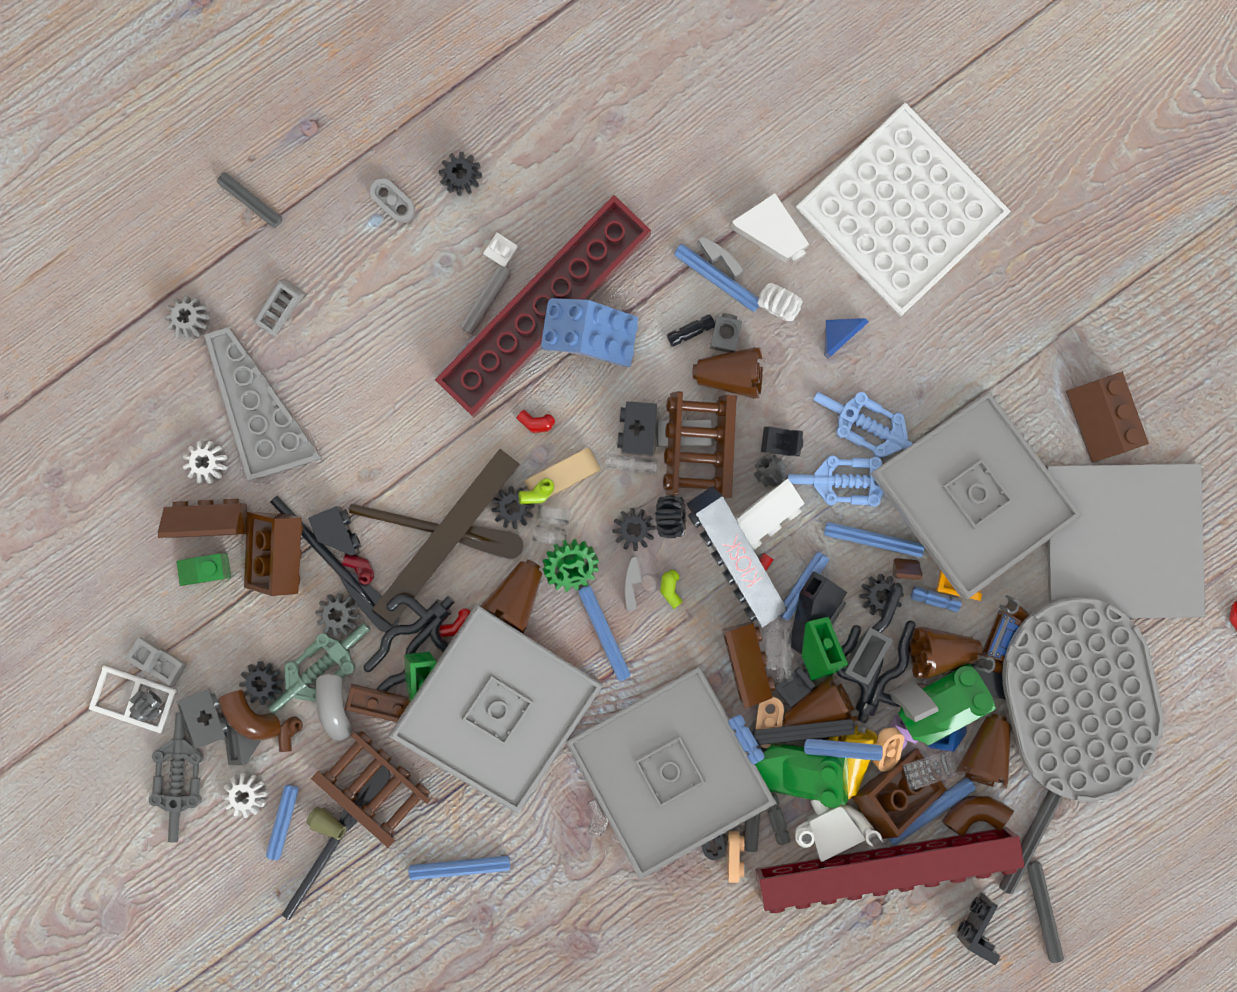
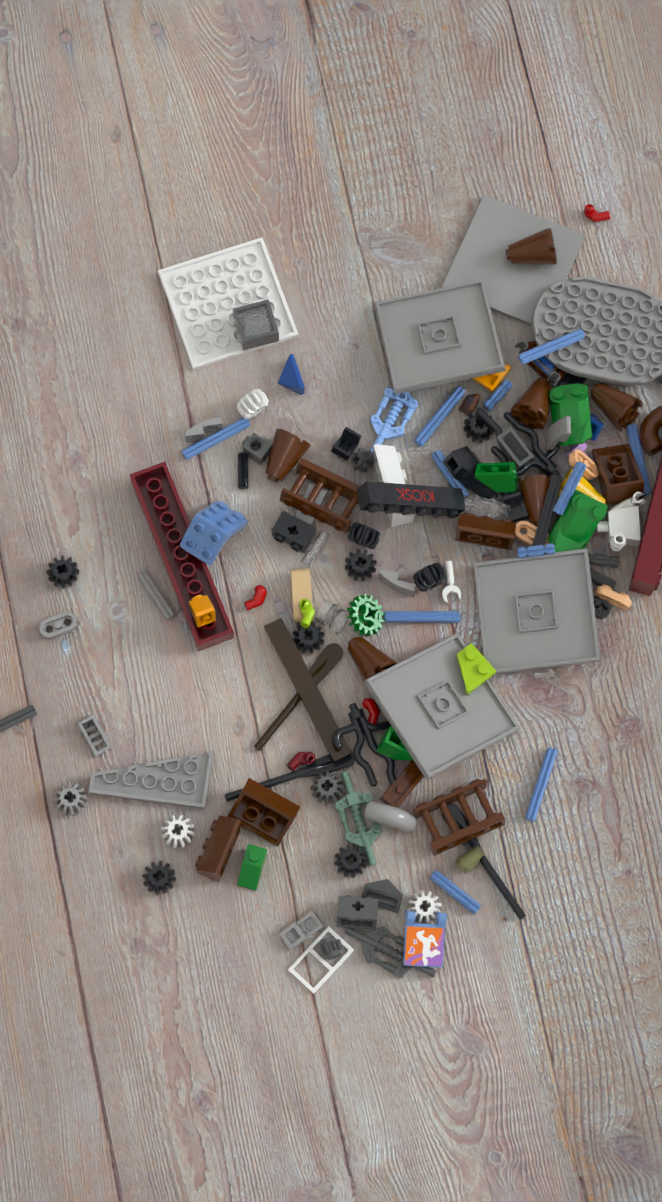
camera: 70 degrees left, 15 degrees down
(130, 464) = (166, 873): none -> black gear
(198, 815) = (424, 941): none -> flag
(245, 720) = (370, 877): reddish brown cylinder -> none
(287, 731) = (392, 859): reddish brown arm -> none
(333, 530) = (268, 764): black slope -> none
(475, 364) = (202, 610): none -> light orange slope
(500, 250) = (127, 570): white tile -> none
(563, 726) = (474, 668): none -> lime wing
(654, 622) = (430, 577): none -> black gear
(664, 647) = (450, 581): none -> white piece
(667, 588) = (410, 561): lime arm -> none
(772, 230) = (201, 388): white slope -> none
(849, 413) = (348, 394): light blue bar -> none
(884, 257) = (255, 324): none -> piece
(929, 770) = (609, 446): clear tile -> none
(1025, 643) = (551, 346): none -> medium blue axle
(1107, 417) = (426, 237): reddish brown slope -> none
(1151, 562) = (533, 249): none -> reddish brown cone

